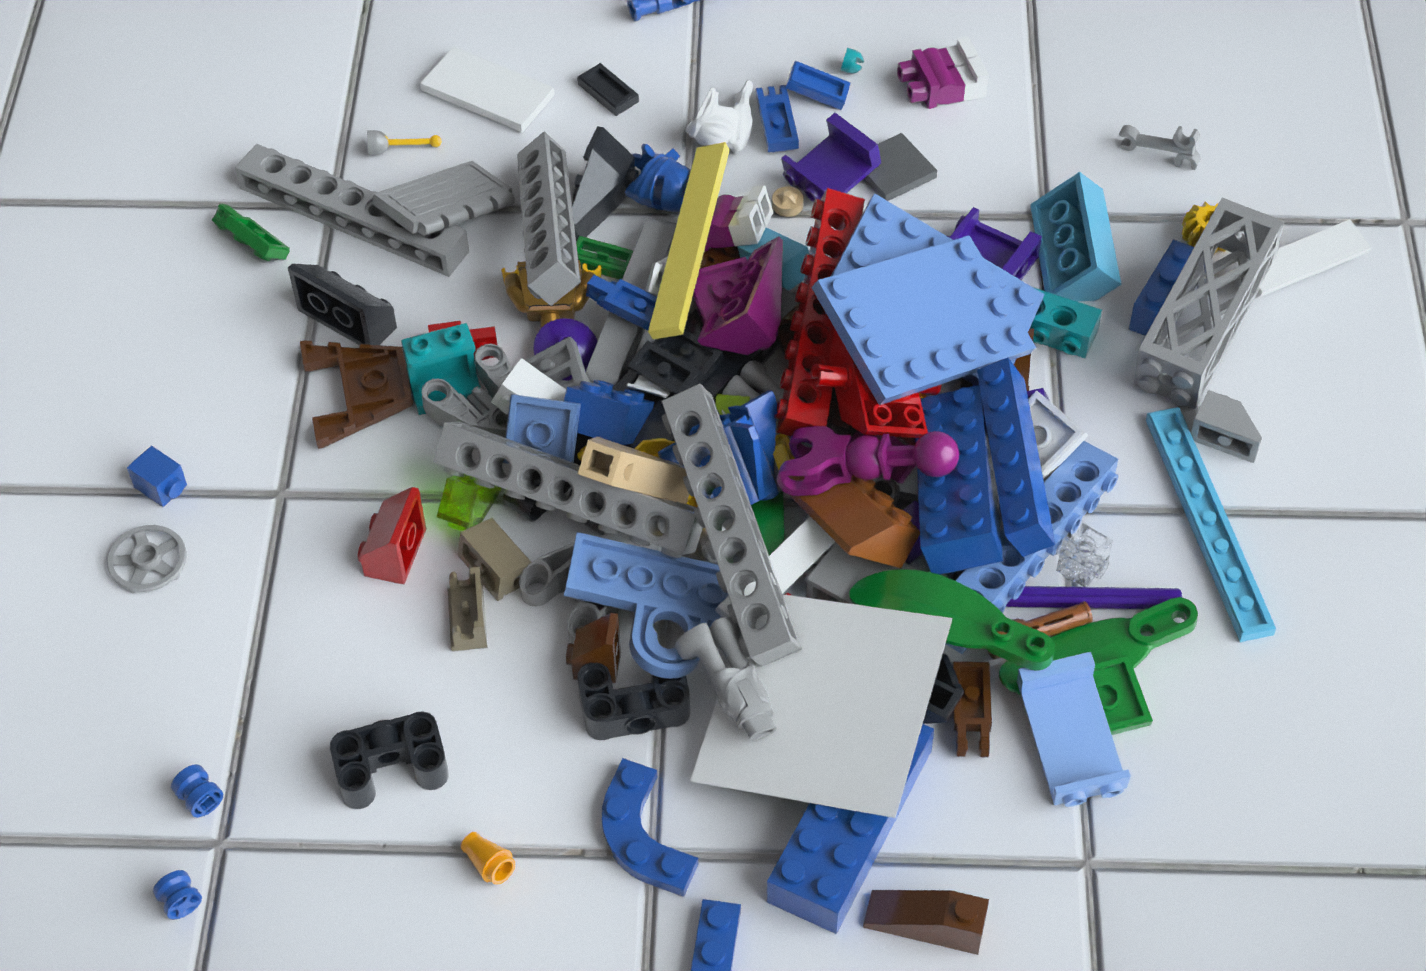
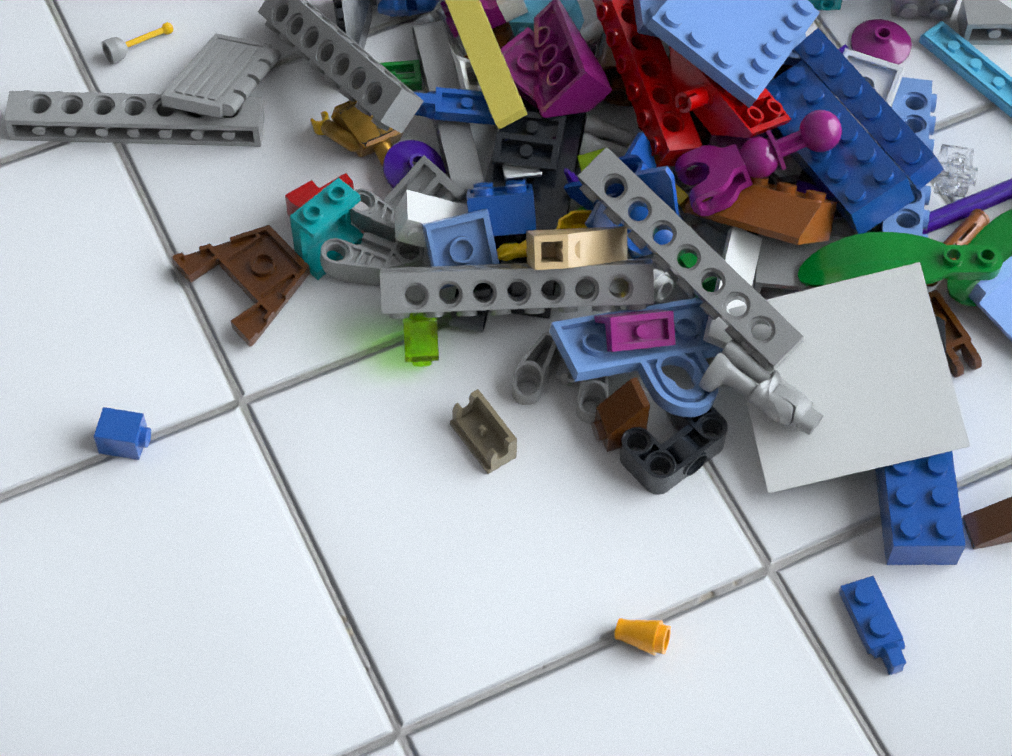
camera: 30 degrees left, 5 degrees up
(147, 557) = (158, 512): light grey wheel -> none
(194, 788) = (356, 697): blue wheel -> none
(250, 233) = (52, 177): green hinge -> none
(341, 304) = (189, 209): black slope -> none
(385, 745) = (494, 578): black beam -> none
(394, 537) = (379, 395): red slope -> none
(495, 554) = (470, 370): dark tan hinge -> none
(629, 841) = (751, 568): blue plate -> none
(651, 572) = (638, 329): none -> magenta panel
(1103, 416) = (882, 40): none -> magenta dish

